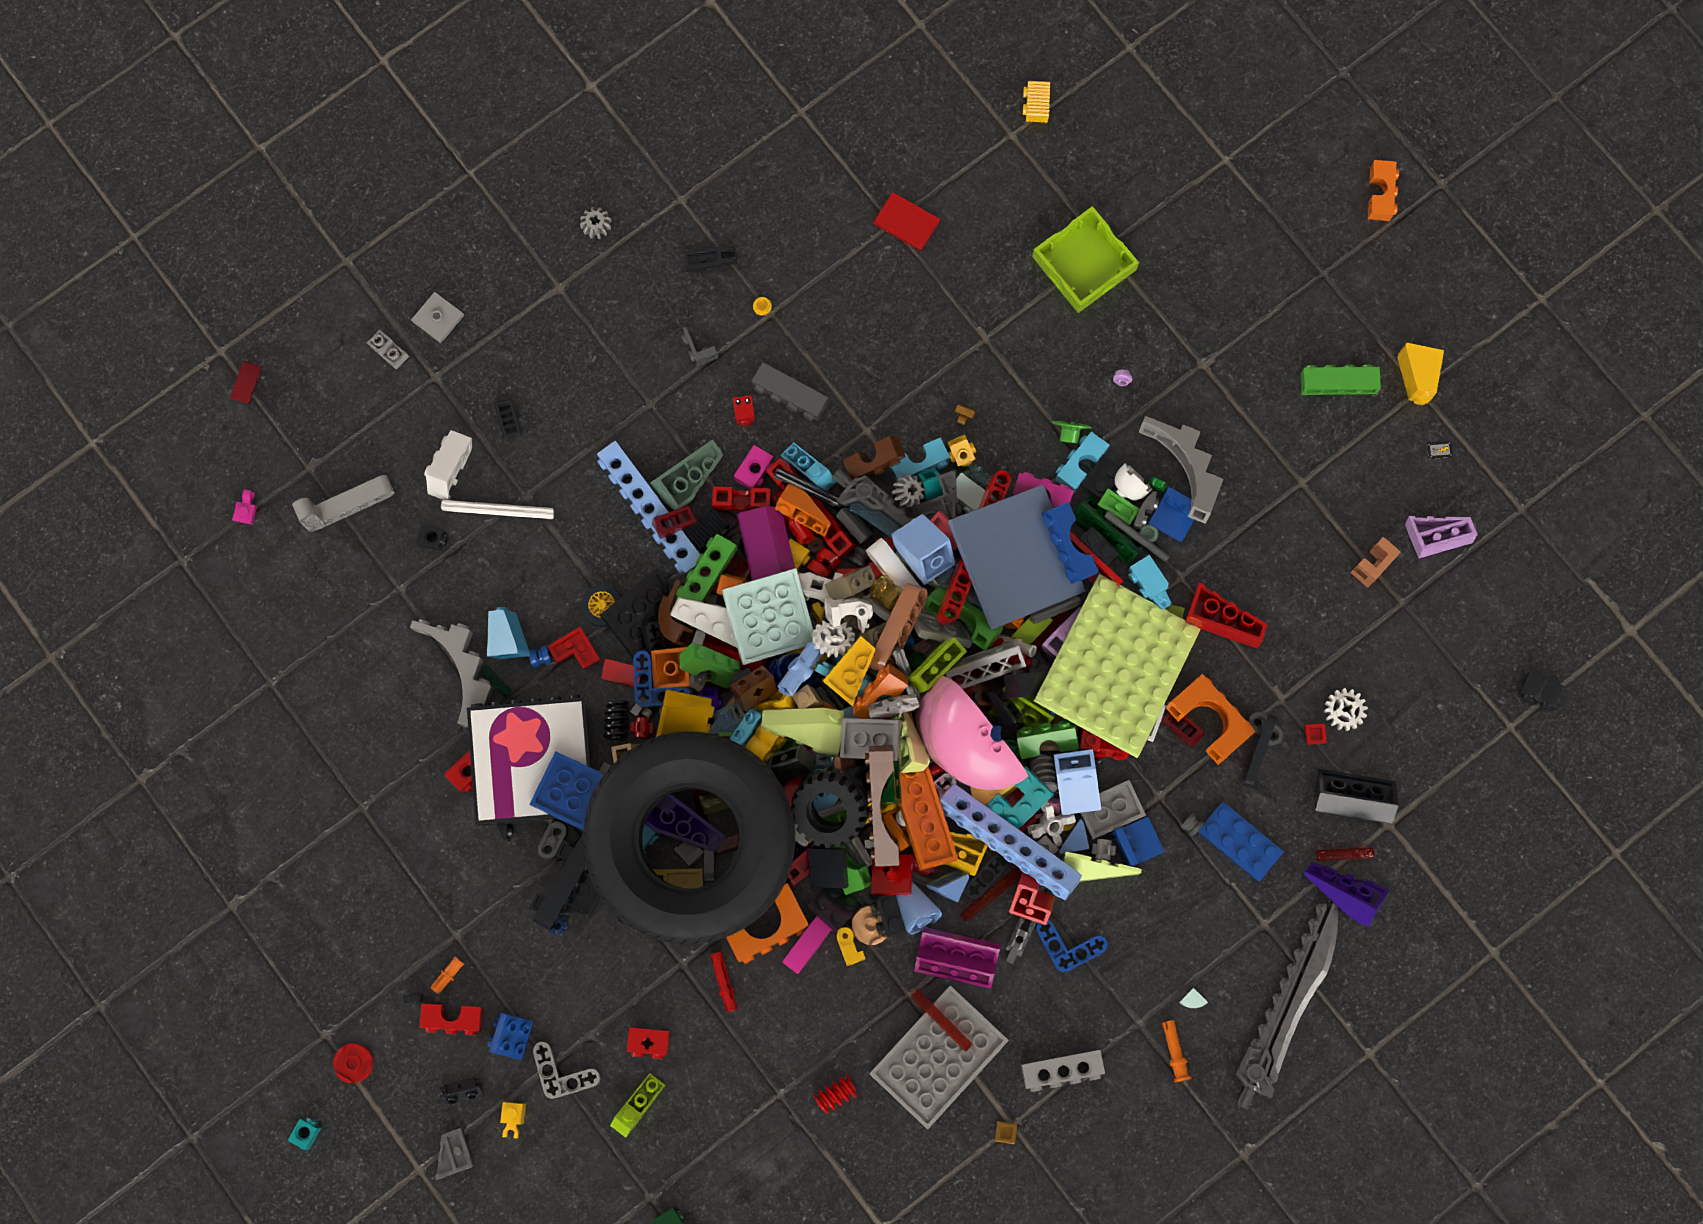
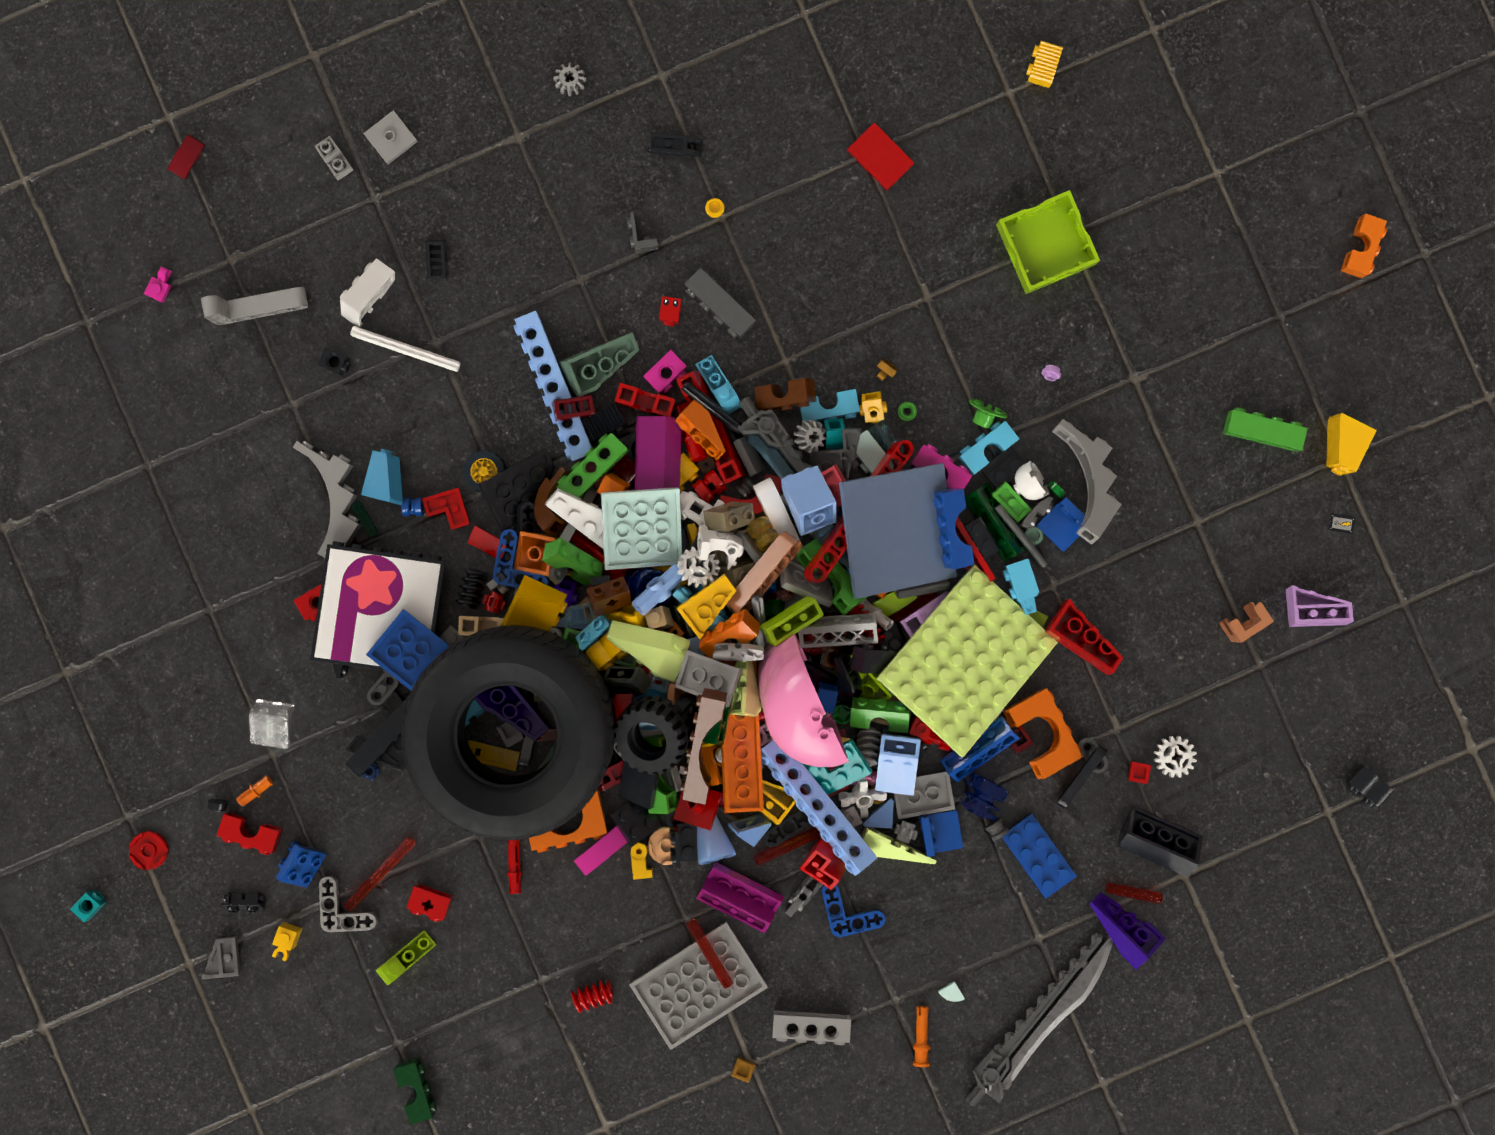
camera: 10 degrees right, 10 degrees up
(448, 904) = (270, 723): none -> clear bracket
(591, 1027) = (379, 874): none -> clear red axle
(995, 442) = (909, 405): none -> bright green plate
(1161, 734) = (993, 737): none -> blue fence
(1170, 794) = (983, 797): none -> clear blue wheel

